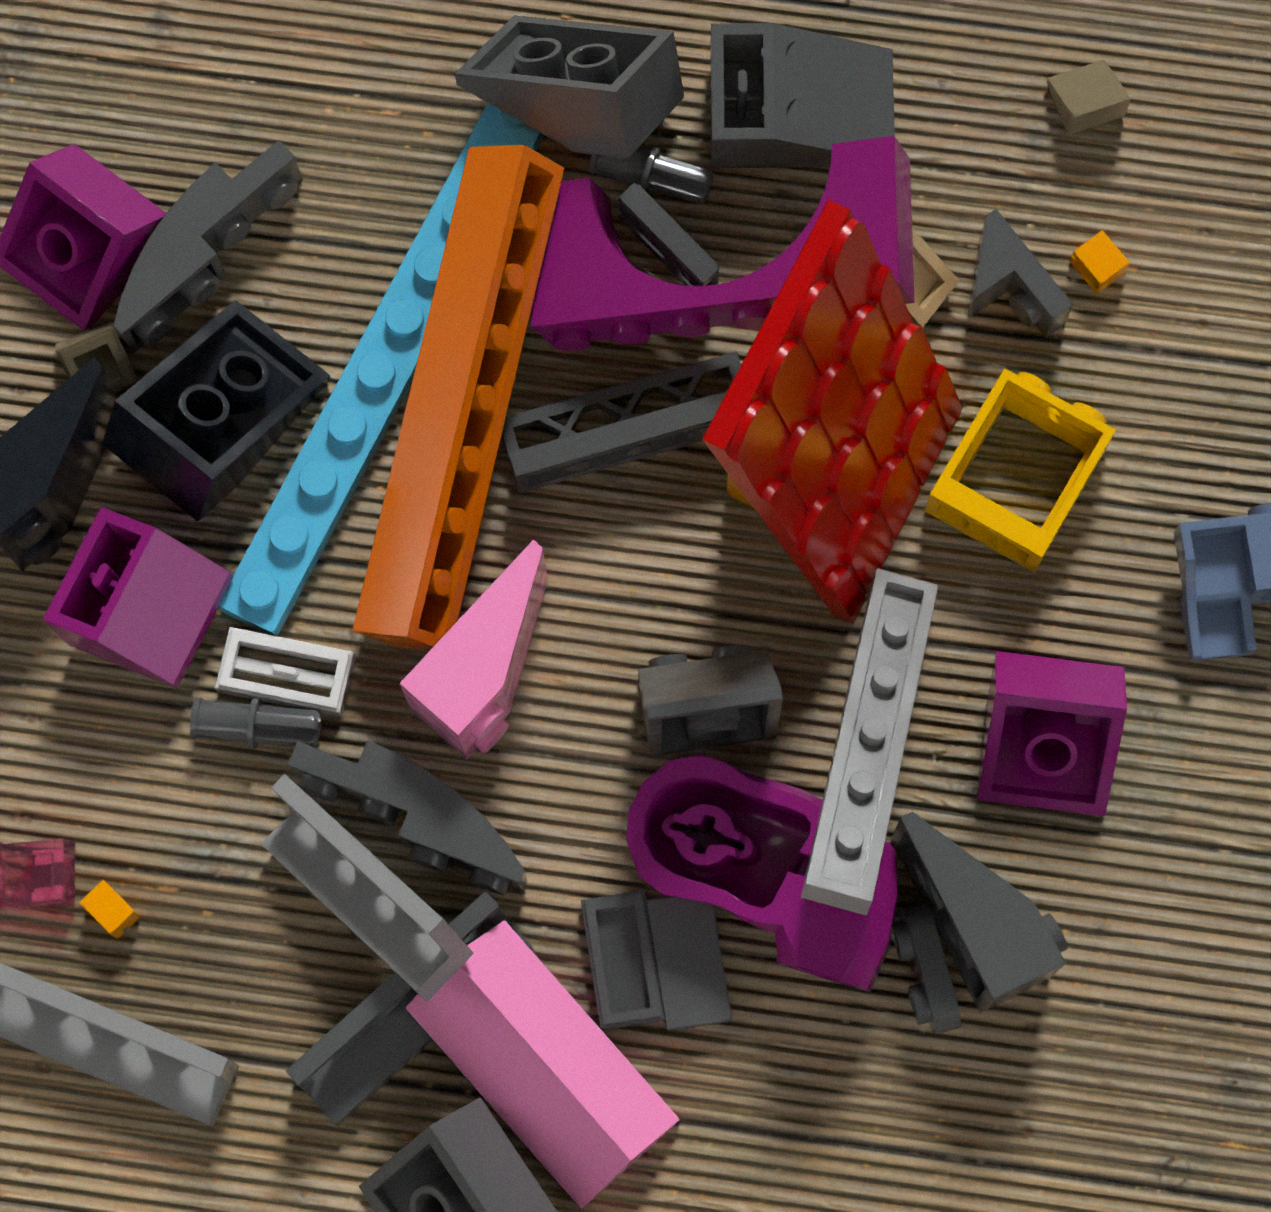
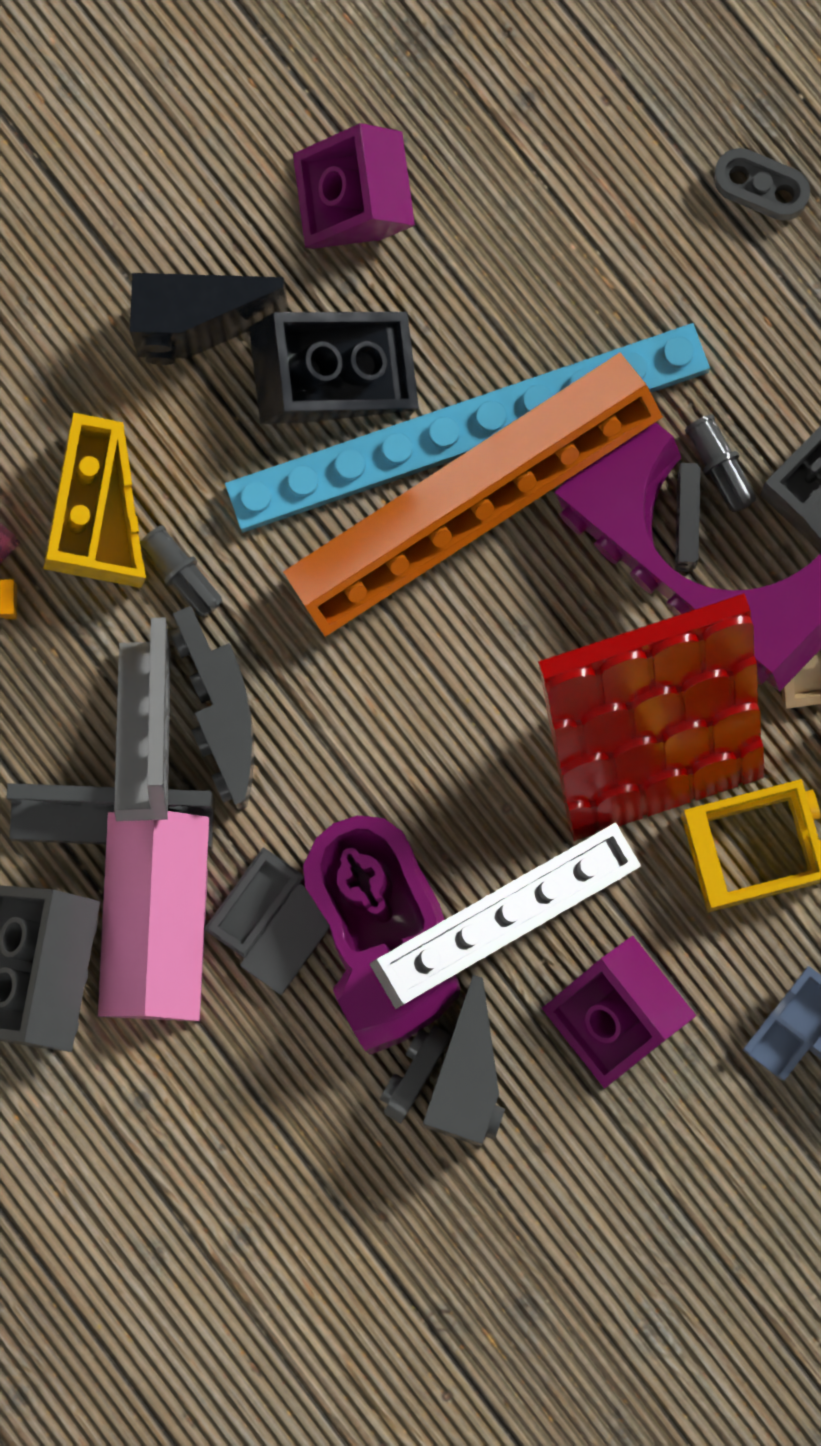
camera: 45 degrees right, 5 degrees up
(107, 349) = (300, 270): dark tan slope -> none
(117, 740) = (94, 507): none -> yellow wedge
(137, 598) = (182, 437): magenta slope -> none
(181, 257) = (396, 256): dark grey slope -> none
(336, 683) = (250, 592): white tile -> none
(475, 668) = (330, 661): bright pink slope -> none
(579, 81) = (727, 370): dark grey slope -> none
(621, 441) = (539, 606): dark grey fence -> none
(709, 700) = (440, 802): dark grey slope -> none

